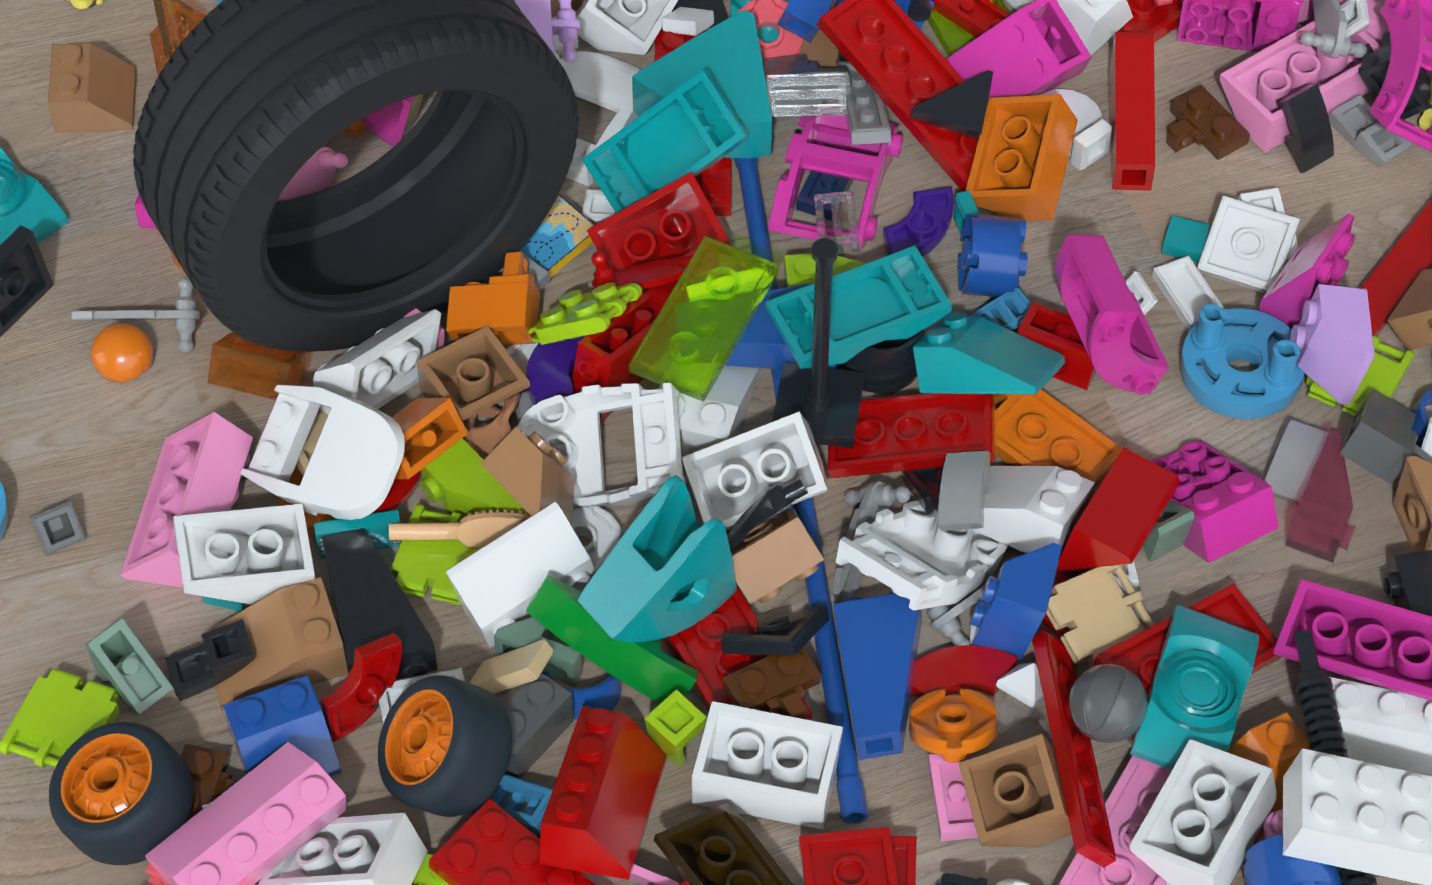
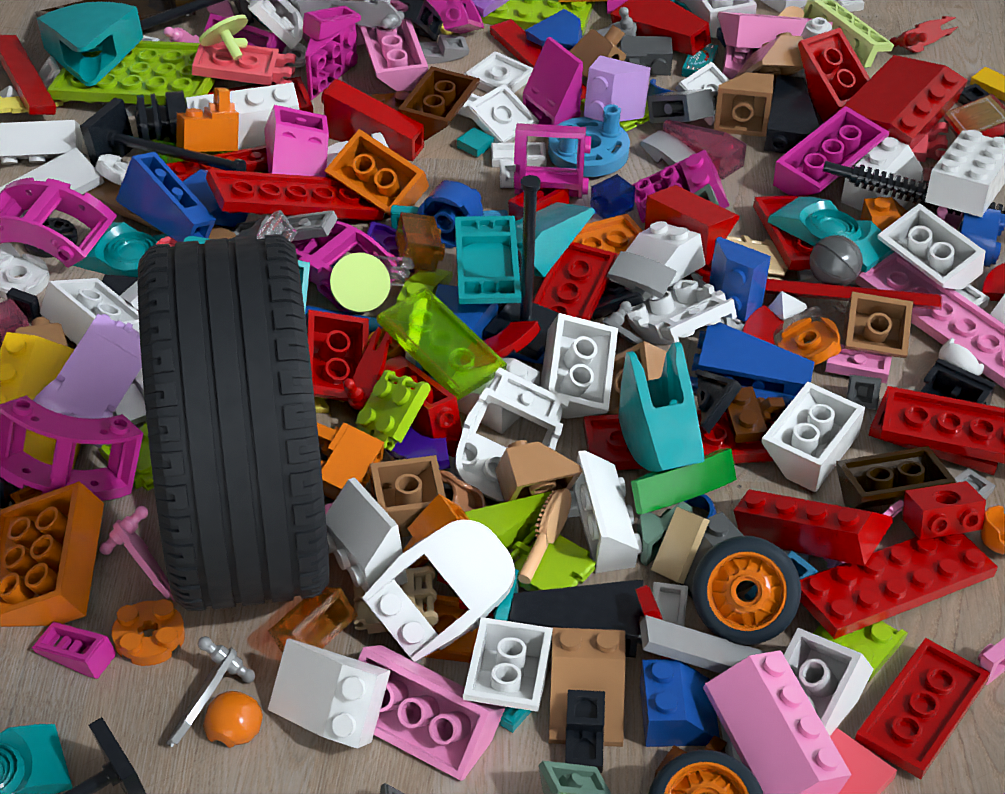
camera: 70 degrees left, 10 degrees down
(161, 420) = (329, 693): none -> white slope
(348, 733) = (692, 645): none -> light grey tile
(675, 725) = (762, 471): lime panel -> none
(756, 385) = (513, 337): none -> red tile
(772, 504) = (614, 357): black bar -> none
(790, 208) = (360, 282): none -> yellowish green shield
(899, 810) = (864, 391): none -> dark grey slope
(927, 228) = (420, 240): none -> clear orange piece
(959, 108) = (325, 182): black tile -> none
(1142, 422) = (612, 197): none -> clear blue brick
(1216, 157) = (438, 99): none -> reddish brown slope
(1310, 127) = (429, 52): black slope -> none
(1373, 210) = (500, 69): none -> white tile

